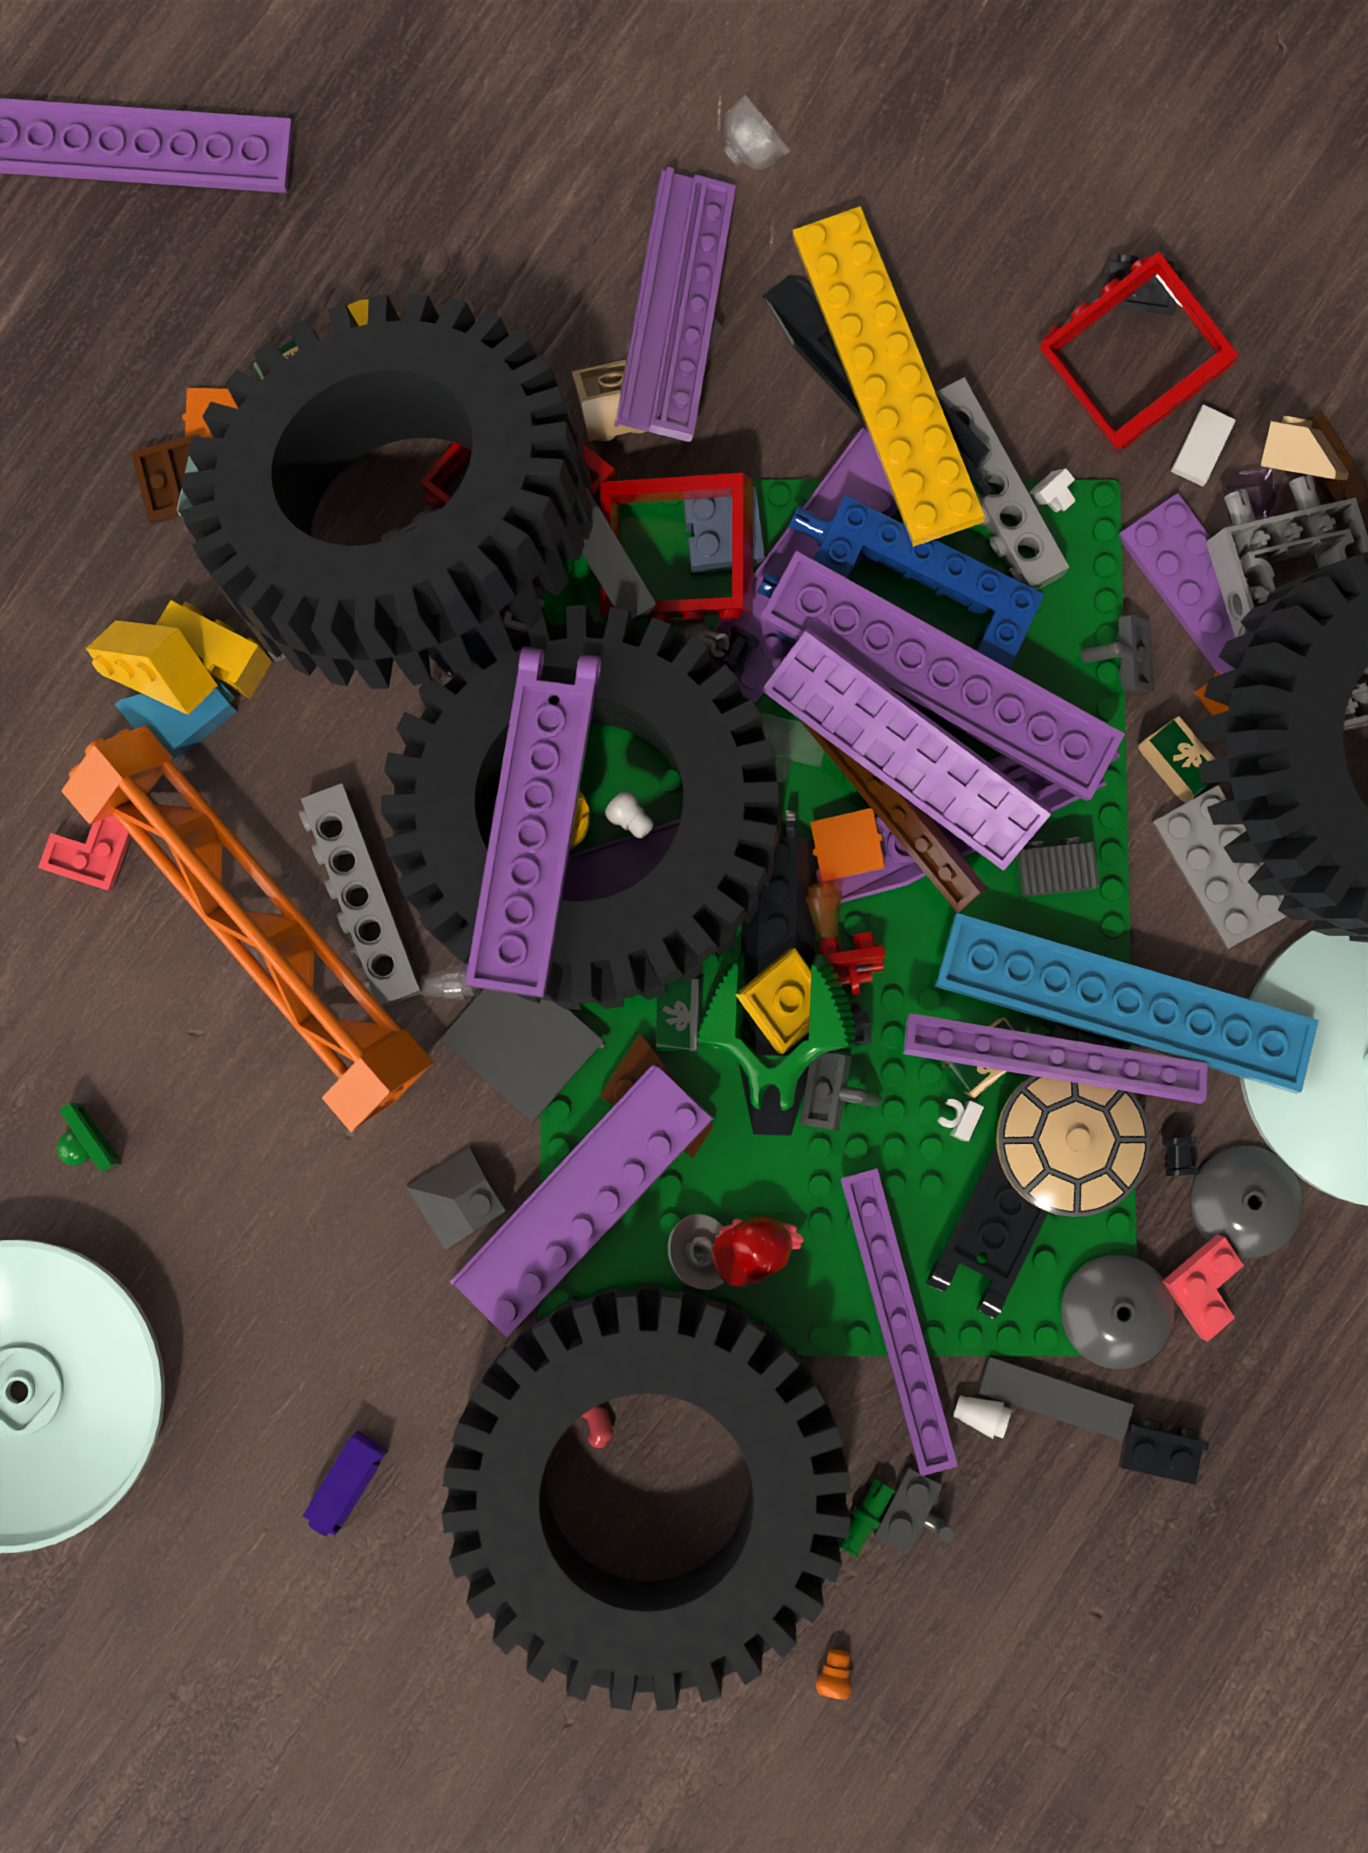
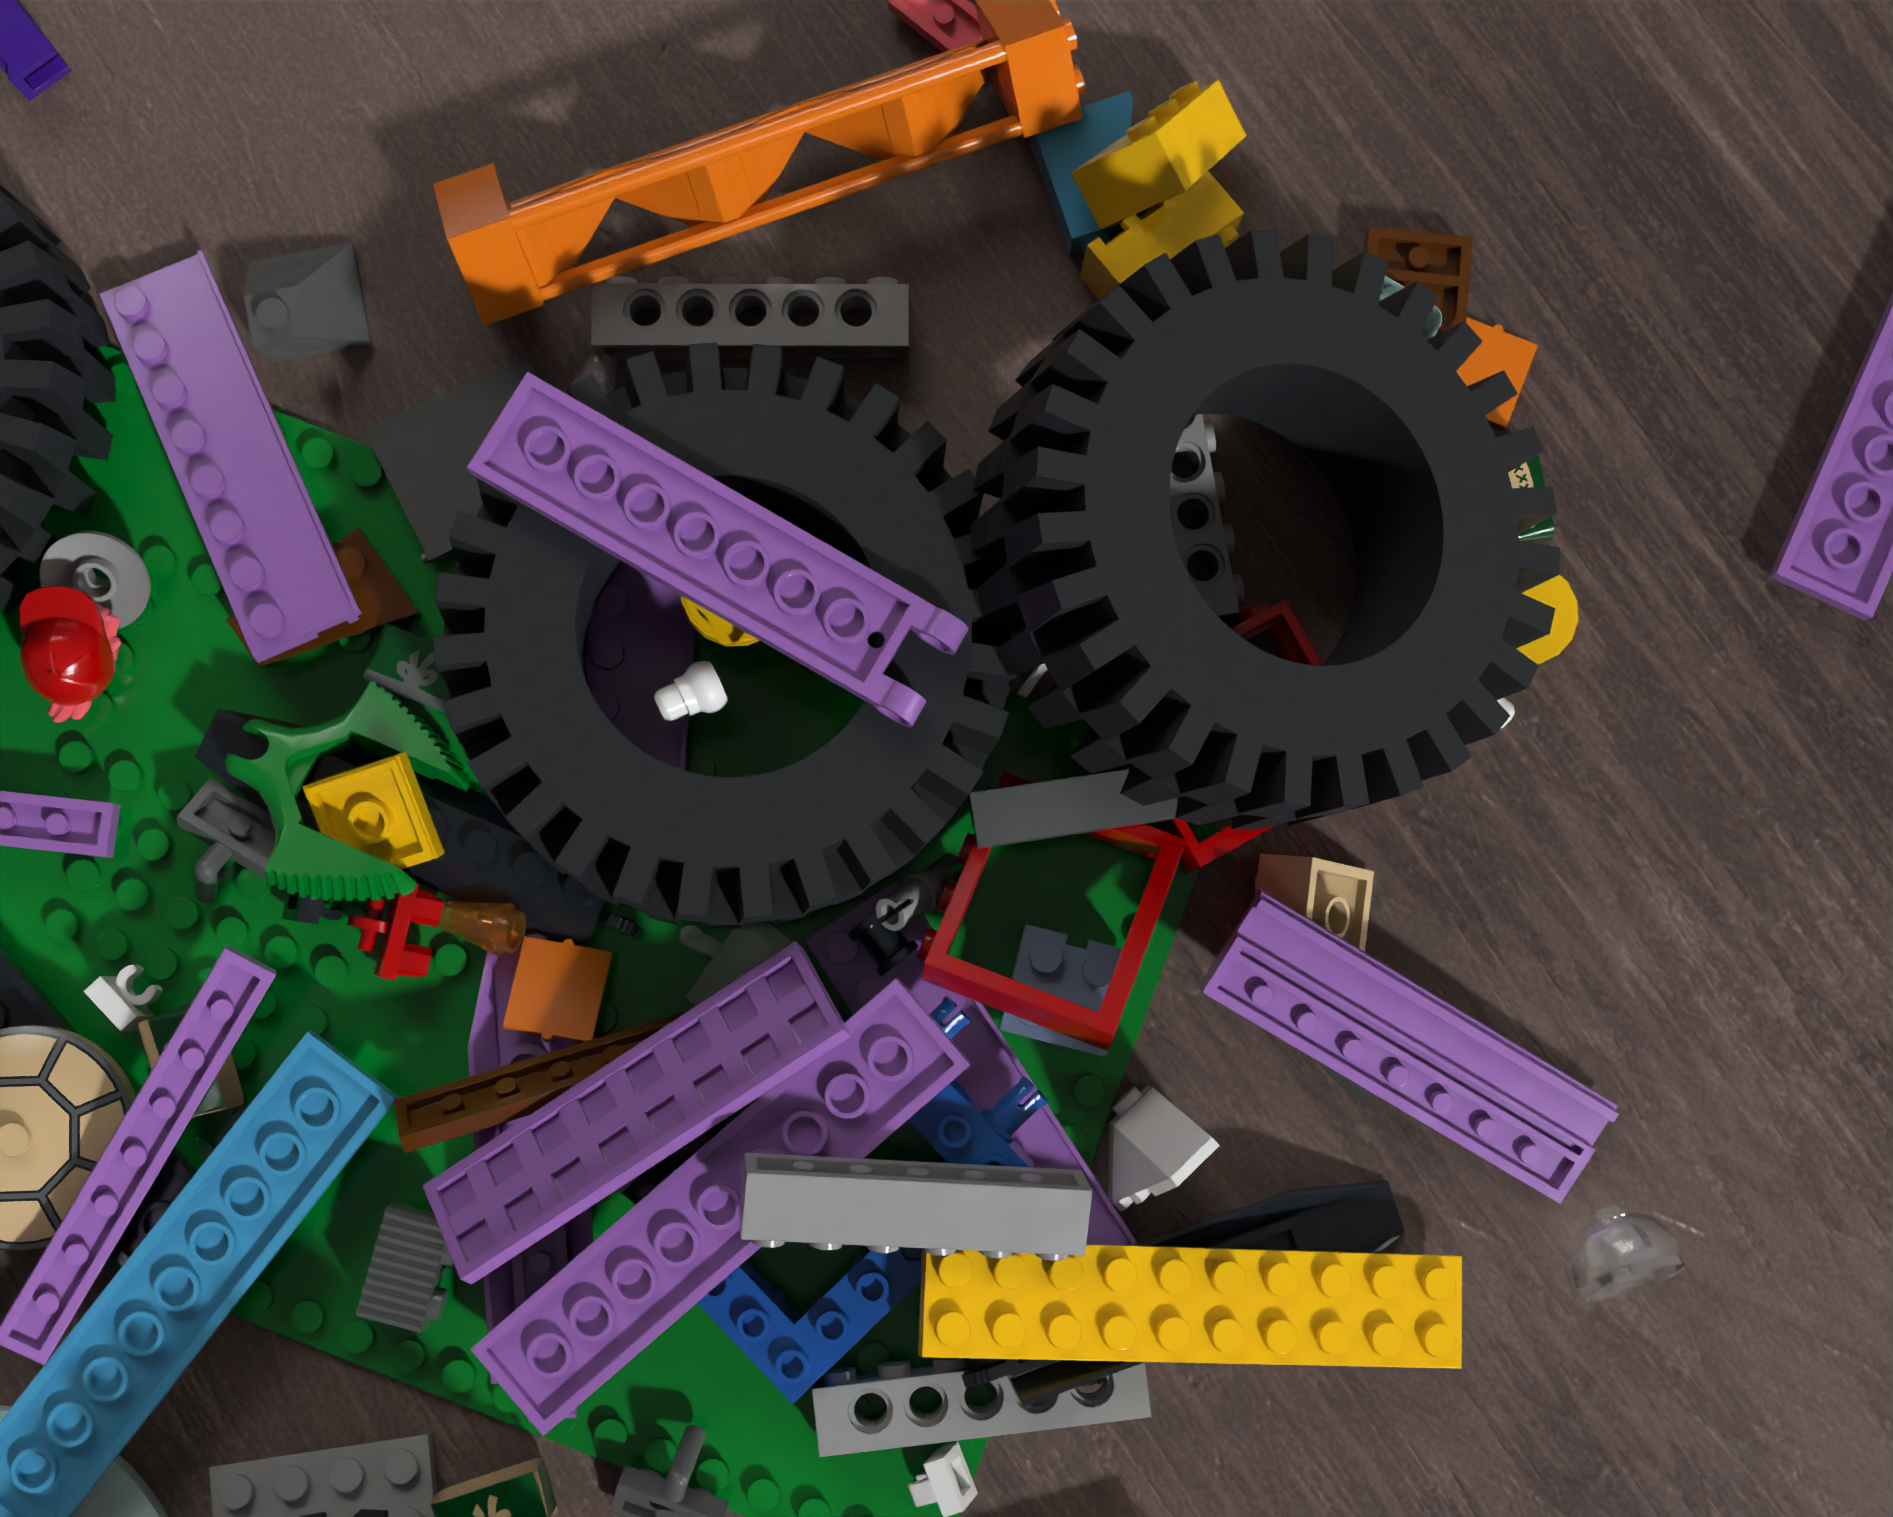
camera: 105 degrees right, 0 degrees up
(801, 432) = (1151, 1147): none -> white wedge
(895, 553) = (914, 1206): none -> light grey brick

